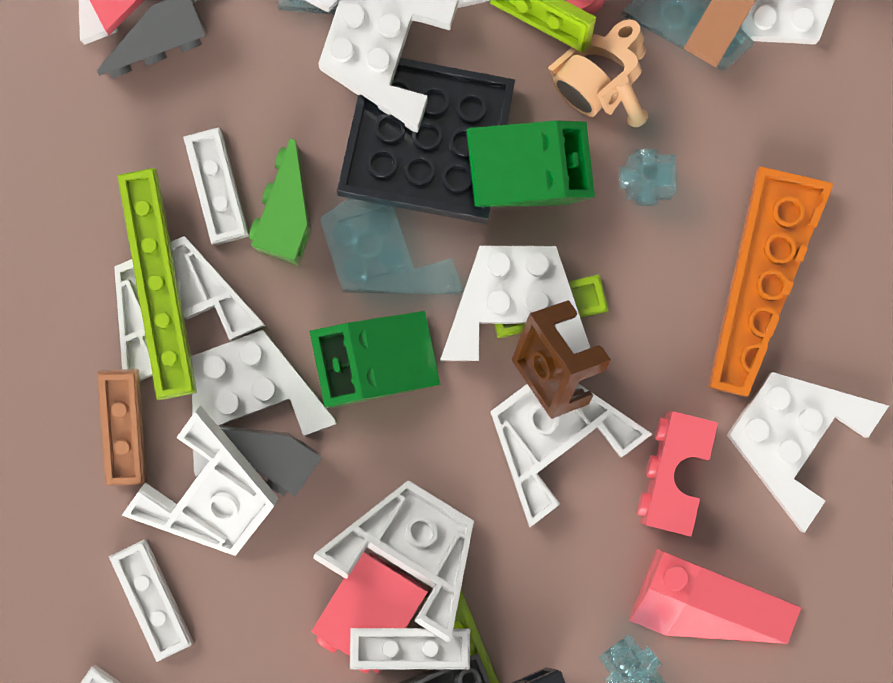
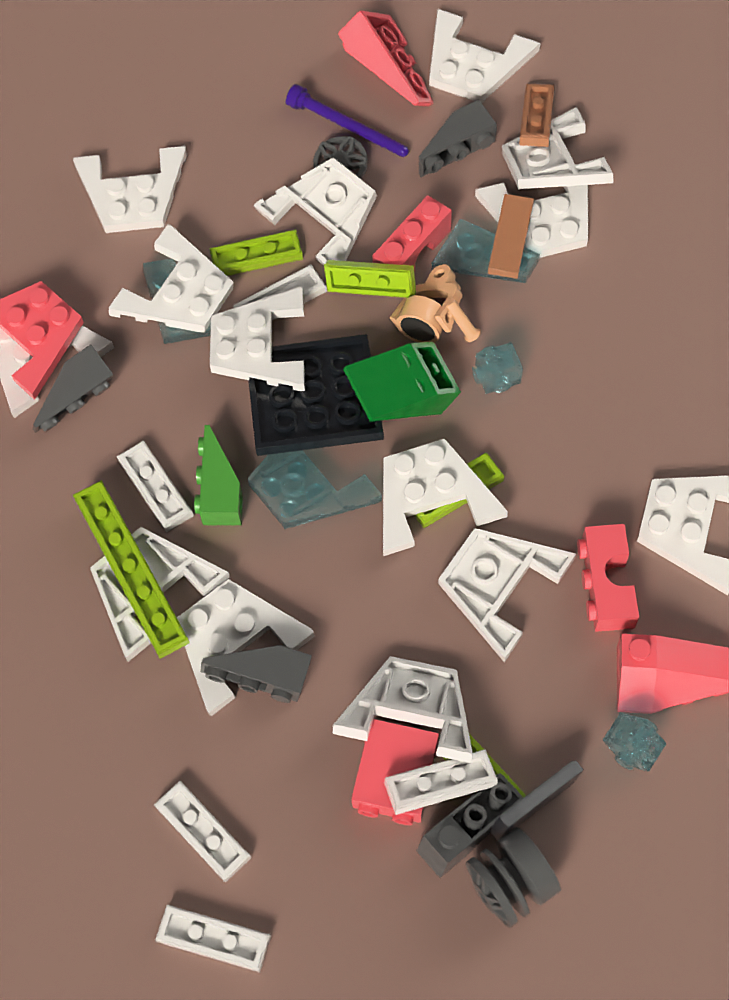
camera: 20 degrees left, 20 degrees down
(122, 427) = (134, 692): nougat tile -> none
(222, 502) = (239, 719): white wing -> none
(374, 358) = (327, 570): green slope -> none
(551, 365) = (473, 515): reddish brown panel -> none
(772, 246) = (613, 391): orange wing -> none

